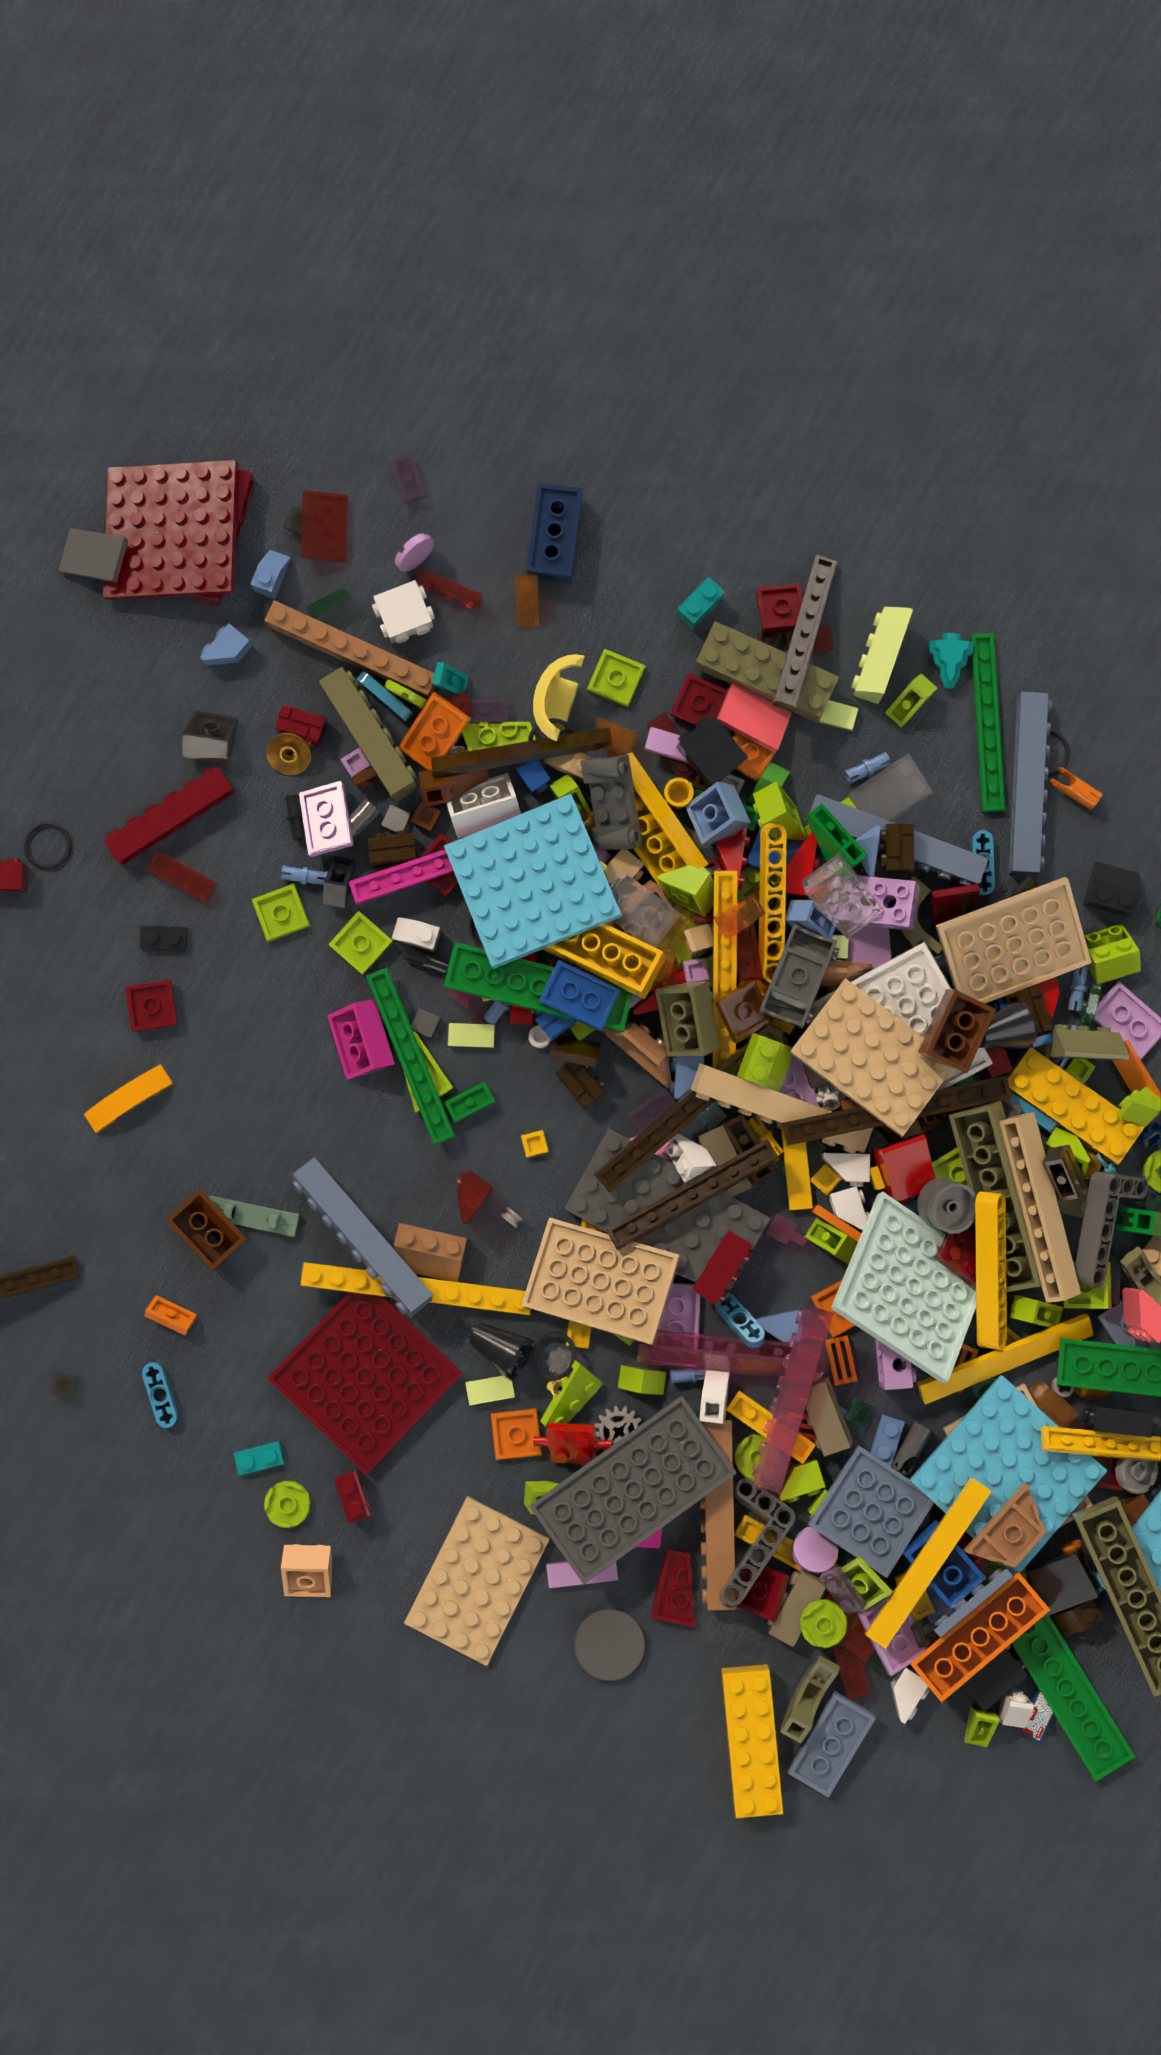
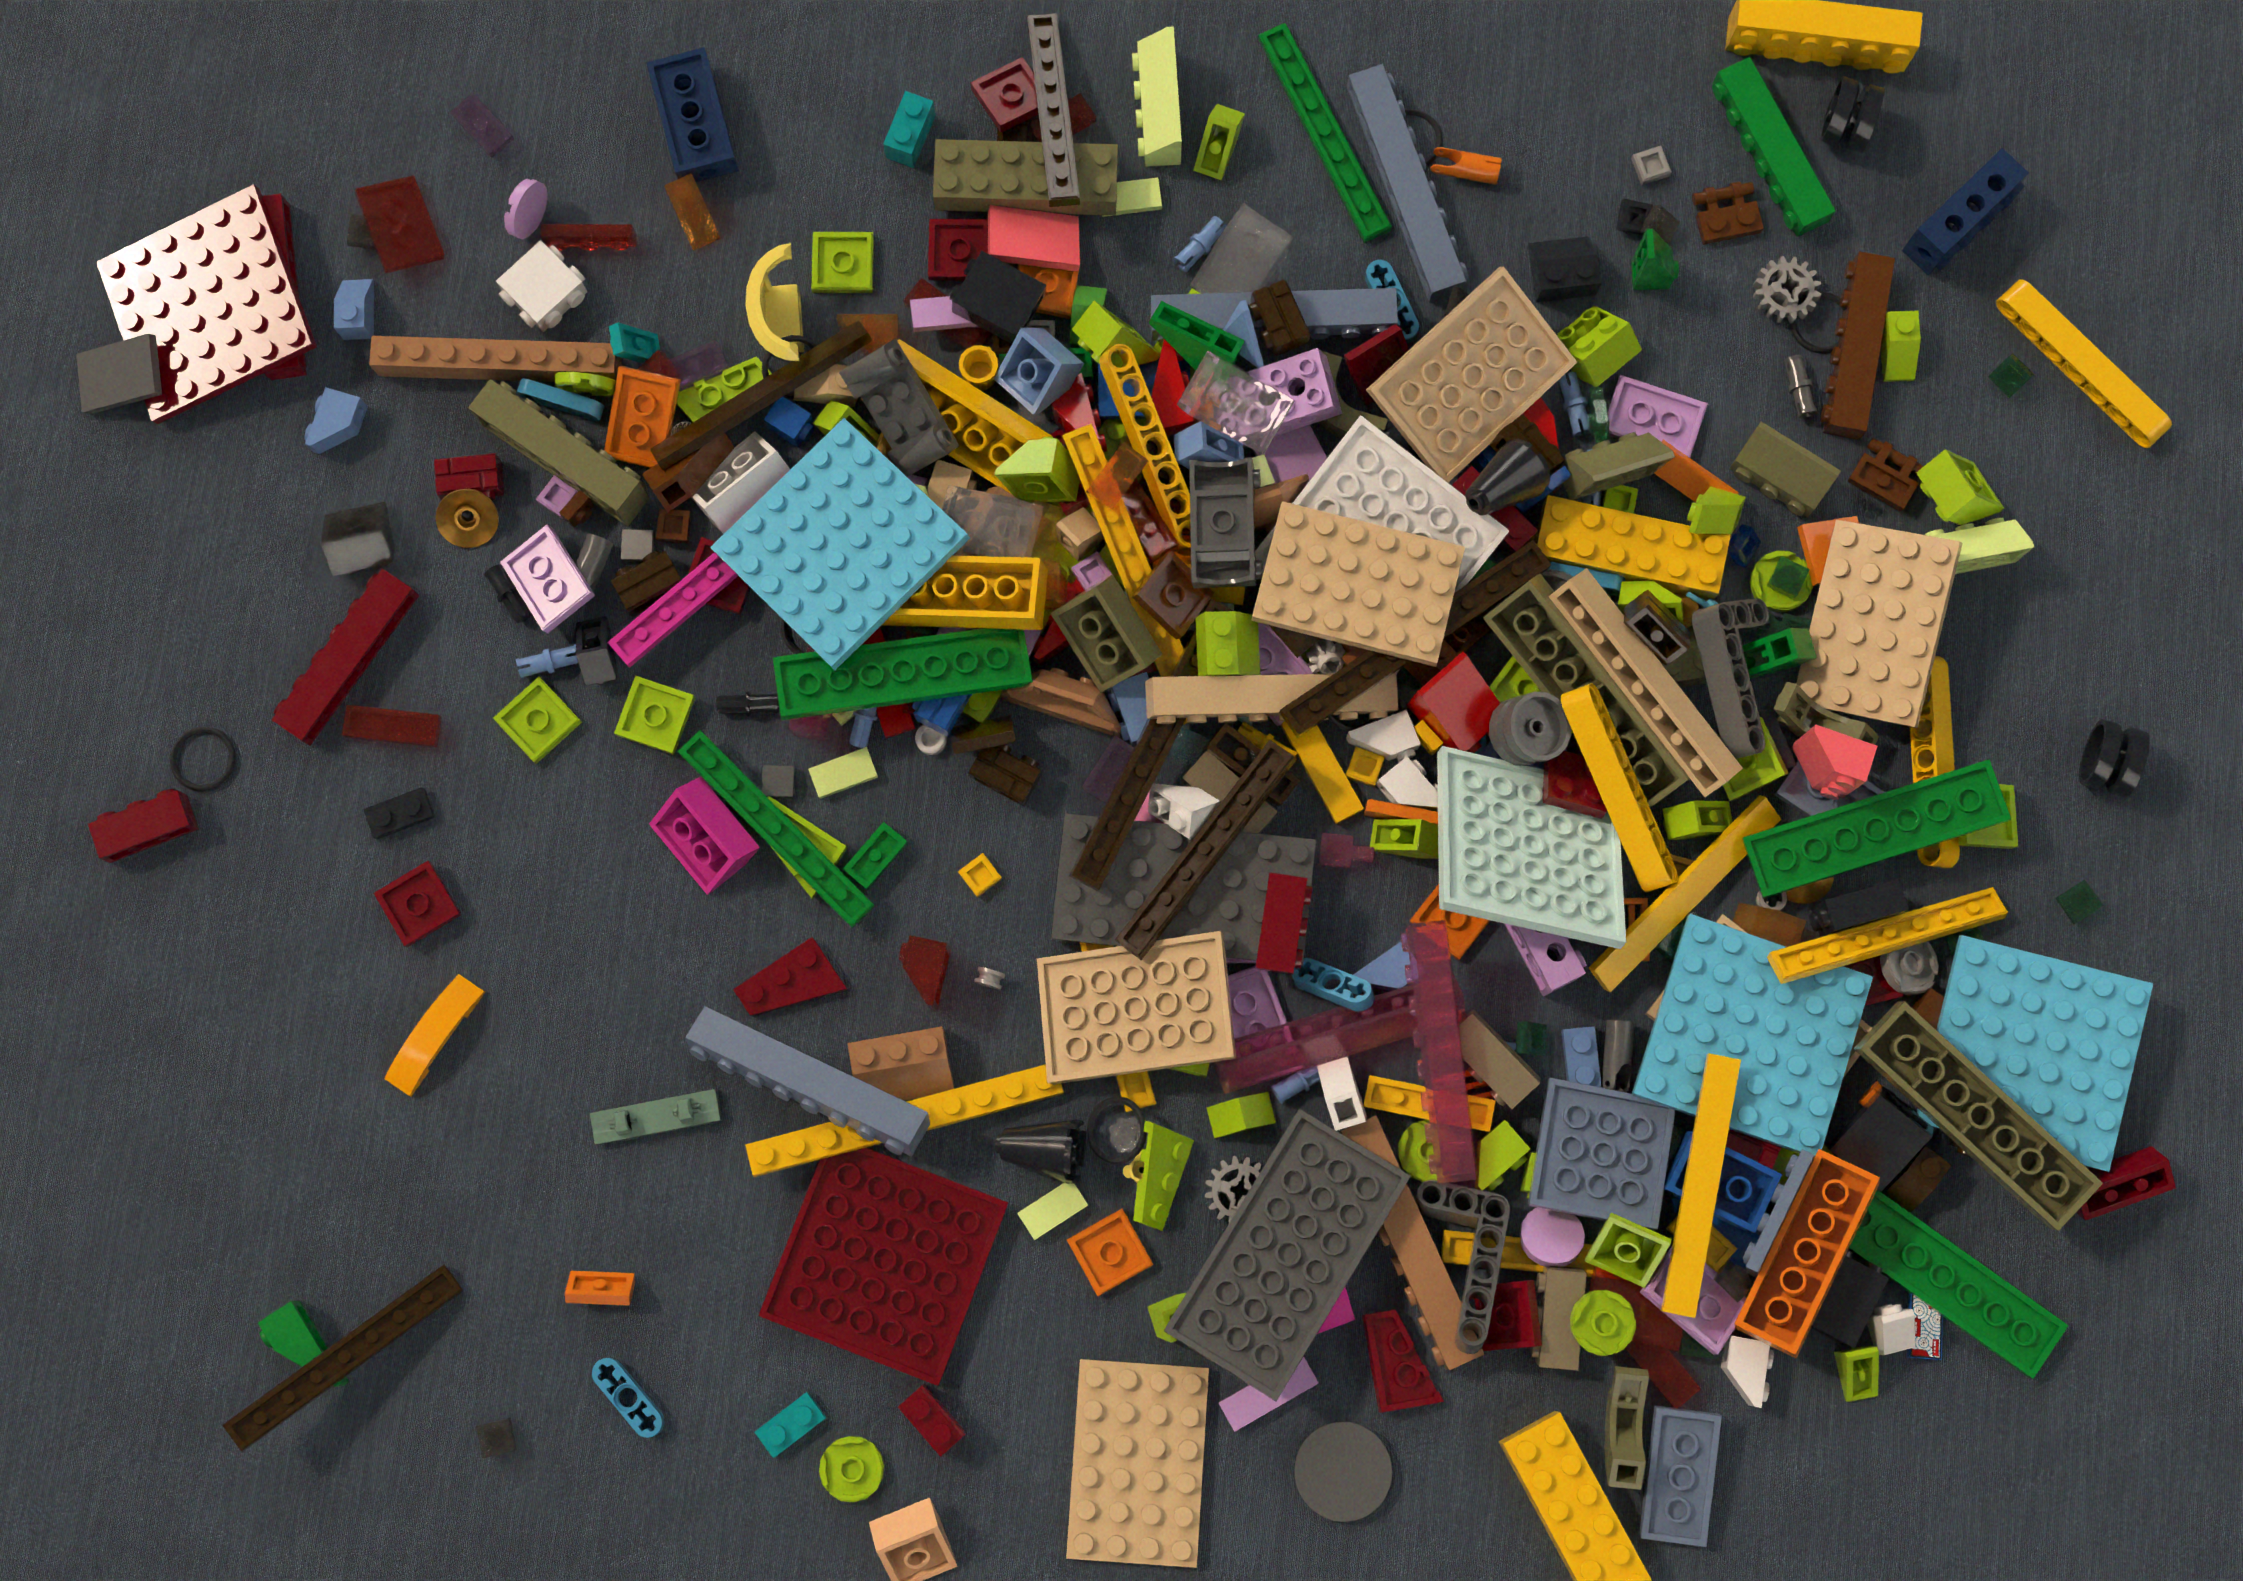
camera: 25 degrees left, 5 degrees down
(206, 1230) = (603, 1157): reddish brown slope -> none
(327, 602) = (441, 313): clear green tile -> none
(380, 1161) = (791, 979): none -> dark red wing
(417, 934) = (722, 674): white slope -> none
(572, 1443) = (1185, 1230): red plate -> none
(579, 995) = (958, 659): blue tile -> none
(843, 1591) = (1609, 1269): plate -> none
(845, 1380) = (1487, 991): orange tile -> none
(950, 656) = (1244, 70): teal rock -> none
(956, 1030) = (1447, 503): reddish brown slope -> none
(1010, 1531) = (1786, 1101): medium nougat wing -> none

